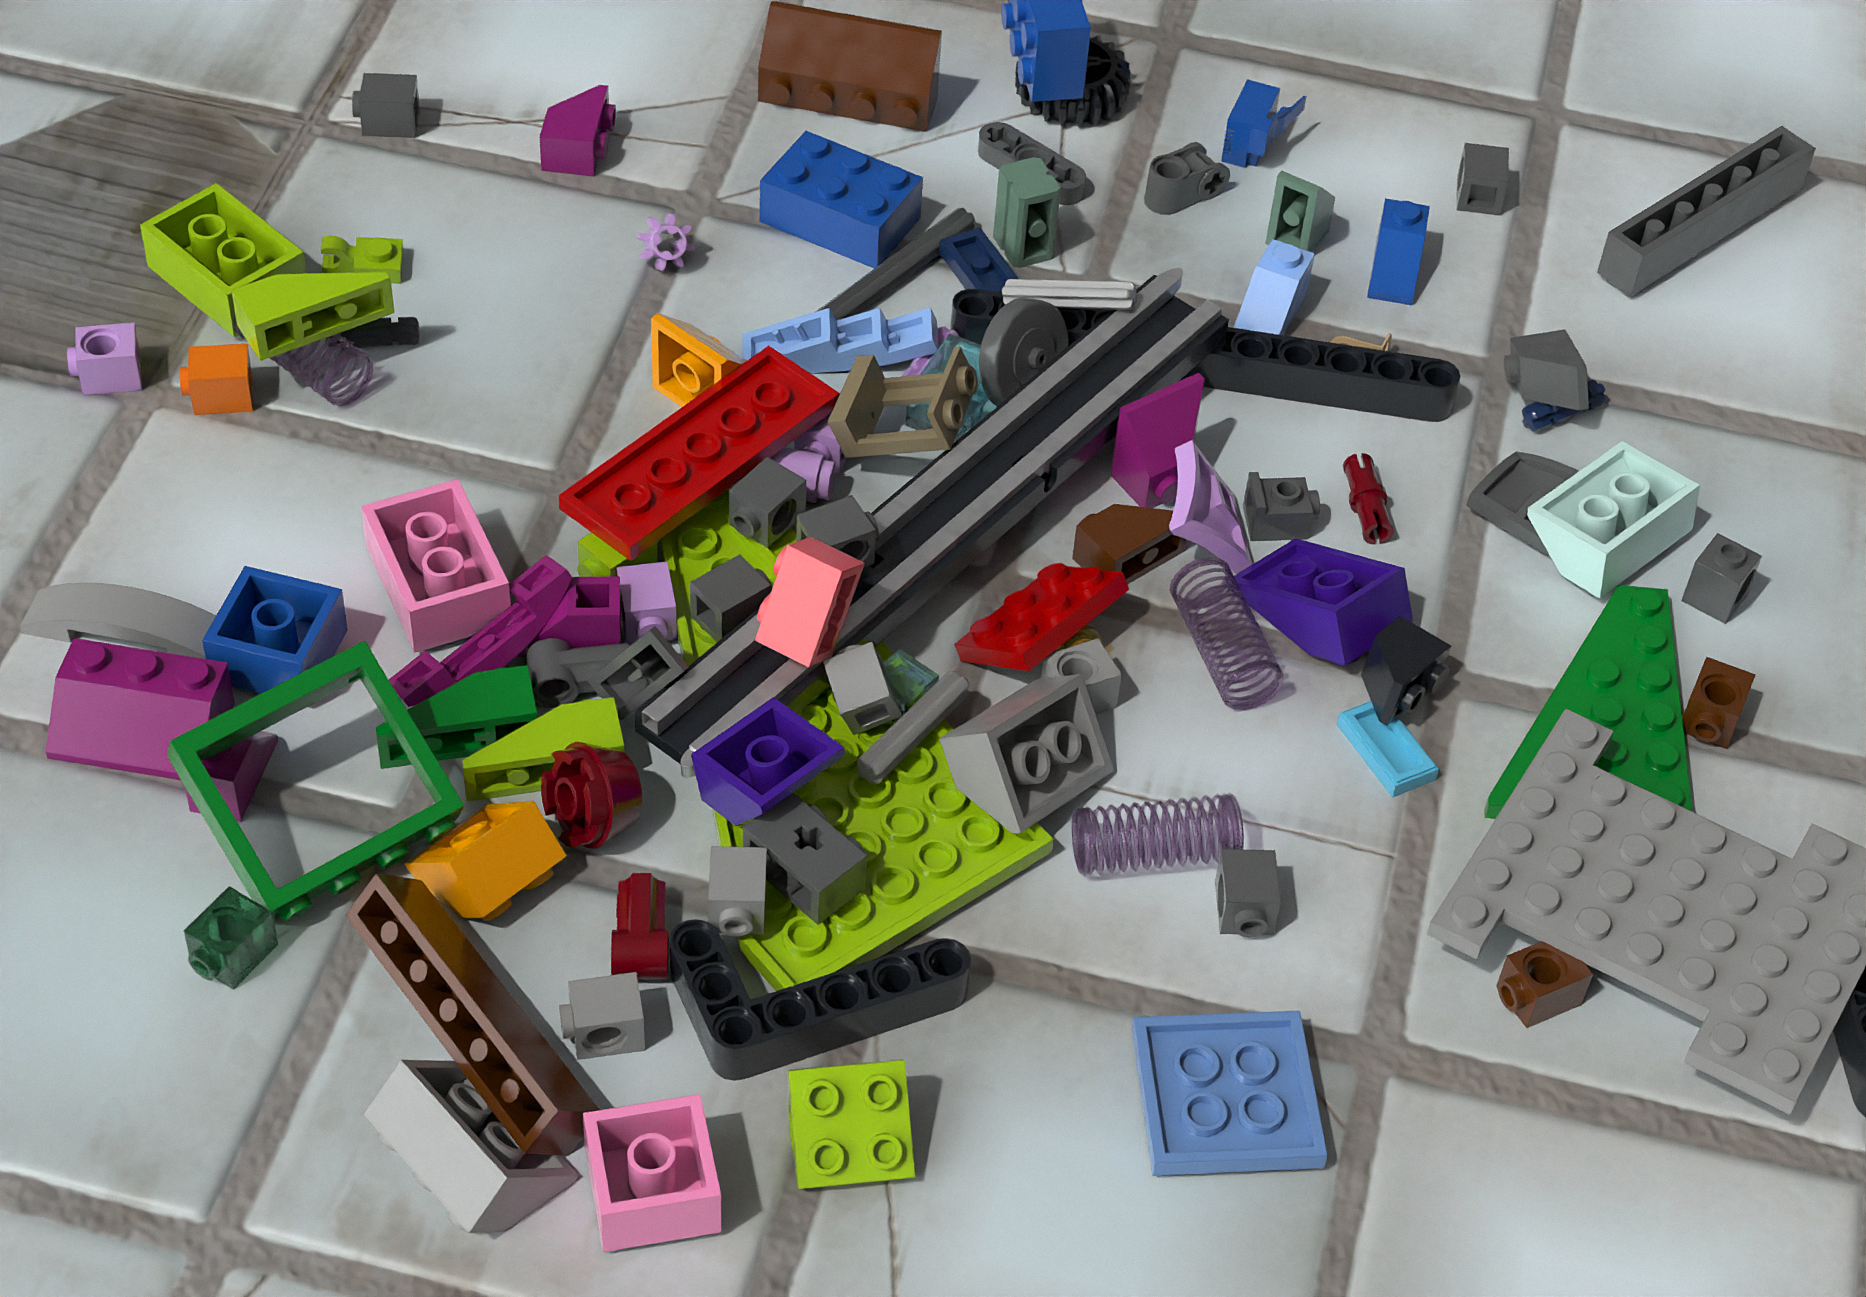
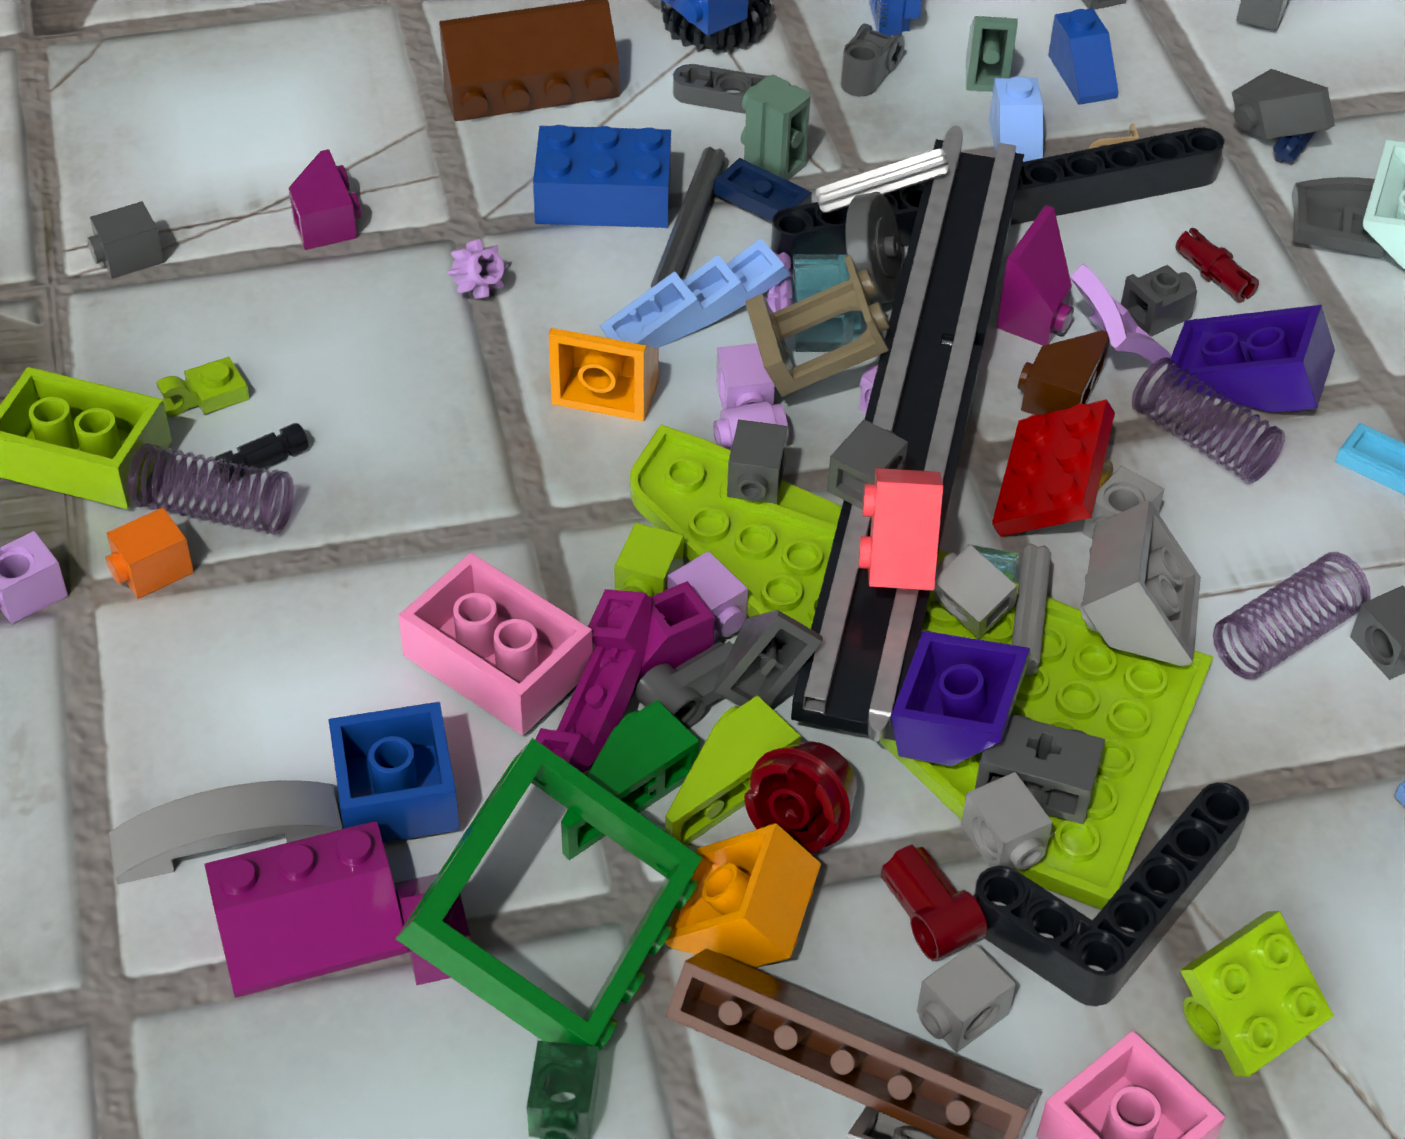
camera: 25 degrees left, 0 degrees up
(308, 307) = (210, 450): lime slope -> none
(698, 452) = (669, 442): red plate -> none
(727, 596) = (794, 562): dark grey brick -> none
(1403, 668) = (1365, 393): black slope -> none

